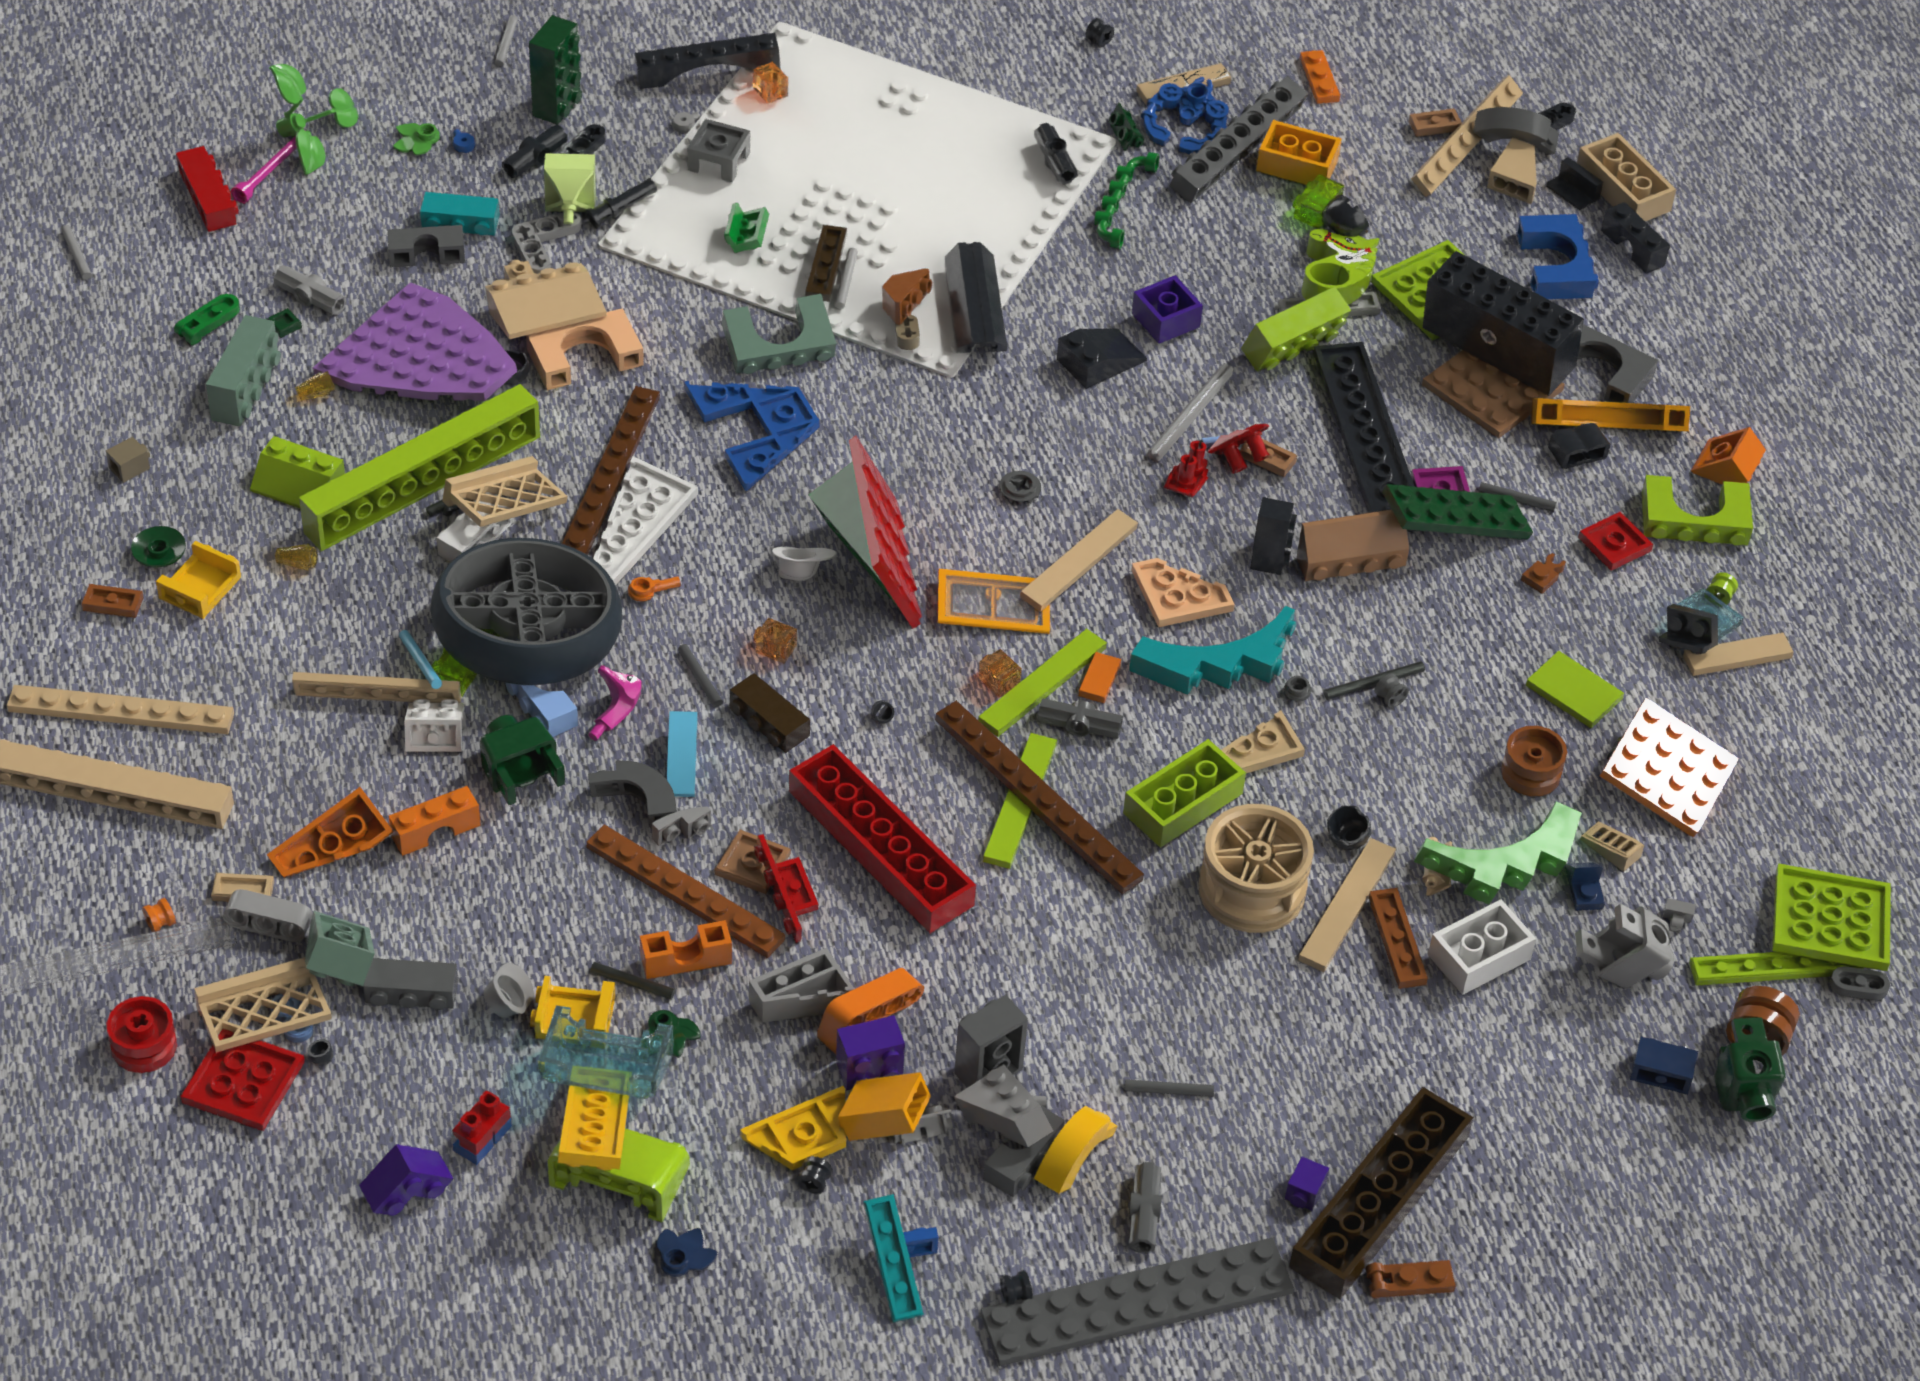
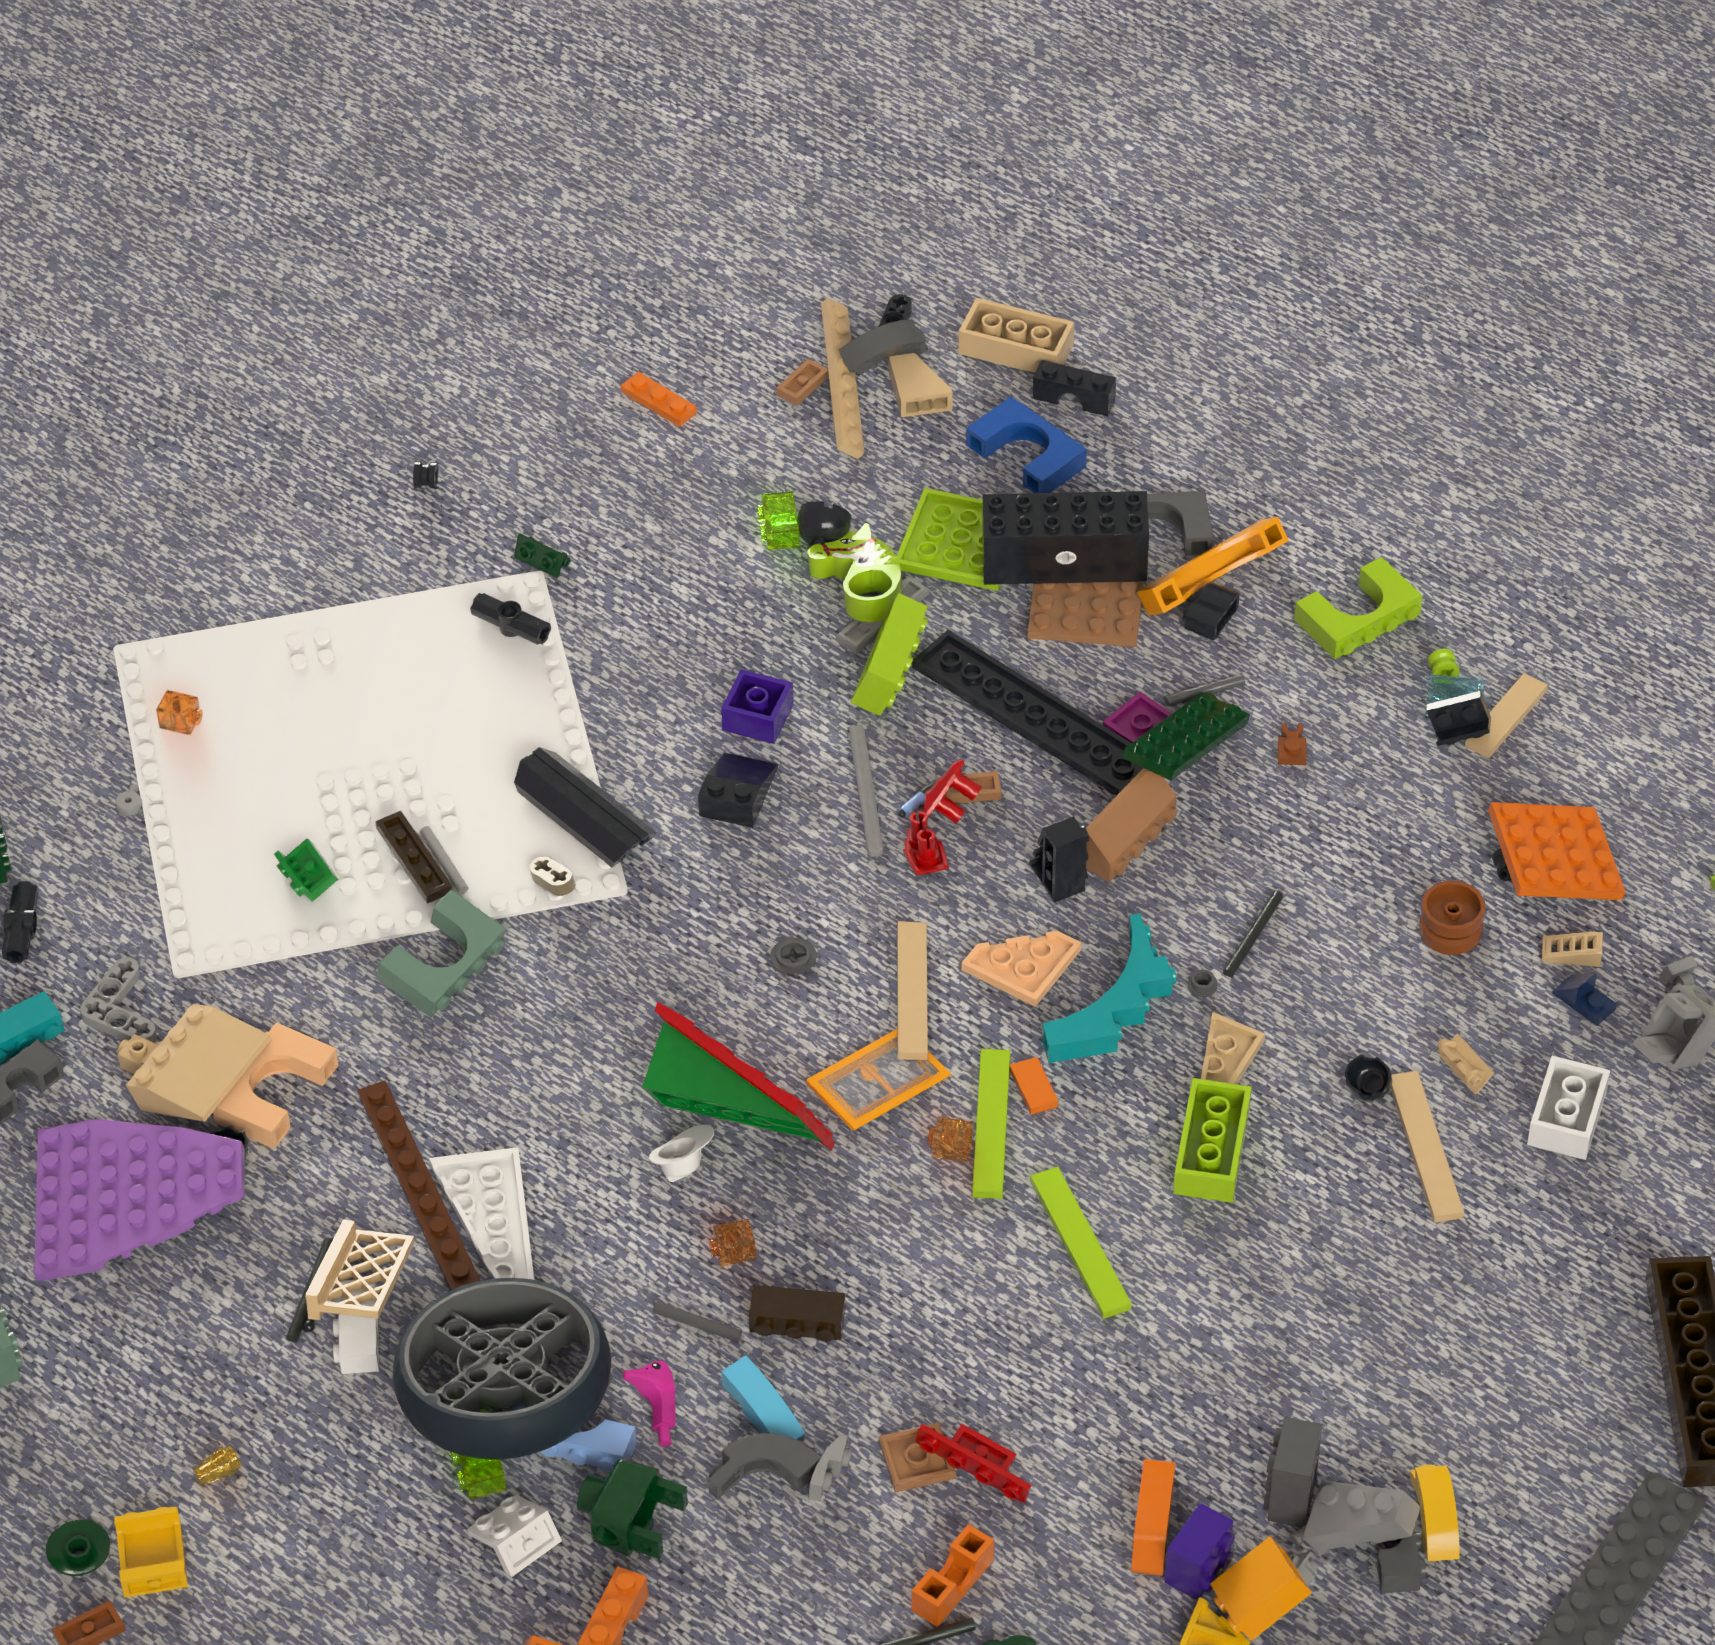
camera: 35 degrees left, 0 degrees up
(292, 470) = (137, 1388): lime slope -> none
(316, 386) = (58, 1290): clear yellow cone -> none
(372, 687) = (426, 1537): tan tile -> none
(419, 467) = (250, 1302): lime brick -> none
(420, 659) = (444, 1481): medium azure bar -> none
(569, 183) = (99, 933): yellowish green piece -> none
(585, 140) = (52, 883): black beam -> none
(612, 207) = (155, 930): black pin -> none
(644, 588) = (566, 1274): orange plate -> none
(660, 66) = (59, 757): black arch -> none
(685, 890) = (885, 1524): dark orange plate -> none
(719, 145) = (200, 805): dark grey panel -> none
(781, 412) = (511, 1025): blue wing -> none
(798, 988) = (1085, 1537): light grey wedge -> none
(882, 838) = (1010, 1357): red brick -> none
(886, 713) = (889, 1243): black hinge -> none
(904, 292) = (516, 842): dark orange slope -> none
(1039, 797) = (1096, 1227): reddish brown plate -> none
(1080, 718) = (1058, 1133): dark grey piece -> none
(1118, 190) = (601, 635): green bar -> none
(1145, 1207) = (1532, 1520): dark grey piece -> none
(1169, 1088) = (1446, 1405): dark grey bar -> none
(1193, 103) = (579, 493): blue piece -> none
(1216, 73) = (547, 480): tan tile -> none
(1237, 140) = (654, 504): dark grey brick -> none
(1255, 868) = (1341, 1145): tan wheel -> none
(1297, 153) = (722, 485): light orange brick -> none
(1306, 1183) = (1632, 1406): dark purple brick -> none
(1391, 690) = (1279, 933): dark grey wheel -> none
(1397, 938) = (1494, 1146): dark orange plate -> none
(1515, 864) = (1516, 1037): arch -> none
(1574, 689) = (1414, 832): lime tile -> none
(1576, 184) = (975, 368): black panel -> none
(1615, 541) = (1321, 678): red plate -> none
(1730, 457) = (1338, 543): orange slope -> none

